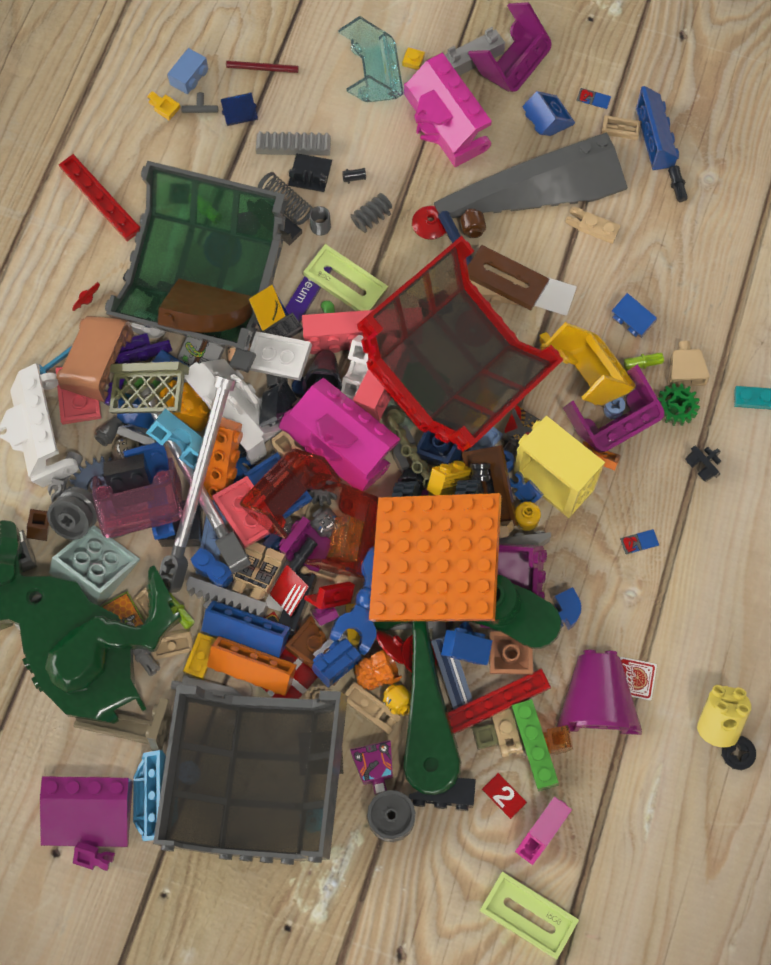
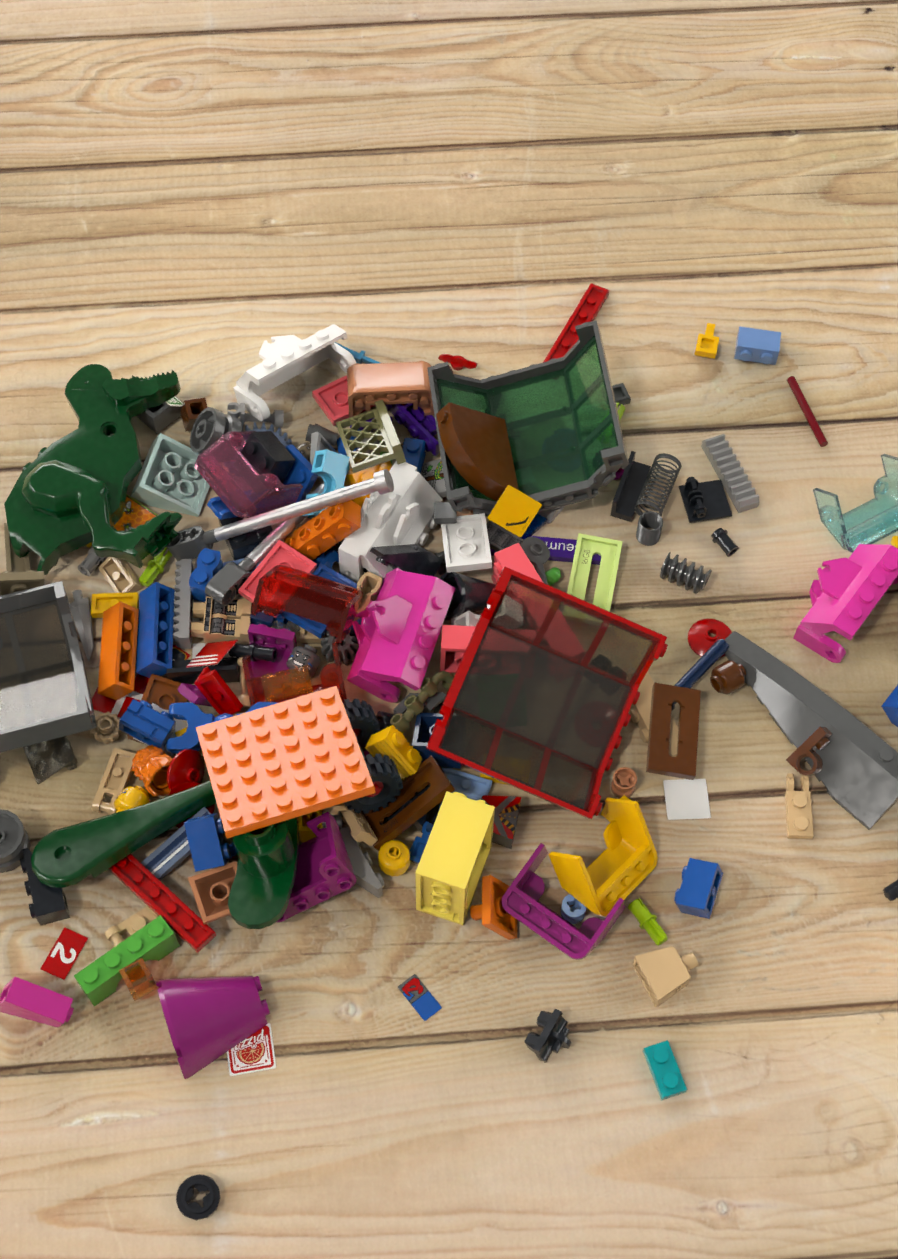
camera: 65 degrees right, 10 degrees down
(199, 107) = (726, 375): dark grey piece -> none
(239, 109) = (744, 410): clear blue piece -> none
(304, 307) = (537, 553): none -> dark grey piece
(374, 764) = (52, 806): torso -> none
(480, 471) = (415, 780): black wheel -> none
(485, 736) = (123, 907): olive tile -> none
(531, 327) = (623, 777): none -> nougat wheel
(557, 196) = (817, 740): none -> reddish brown plate
(568, 606) = (299, 944): blue brick -> none
(679, 402) = (601, 985): green gear -> none
(724, 716) = (227, 1154): light yellow cylinder -> none

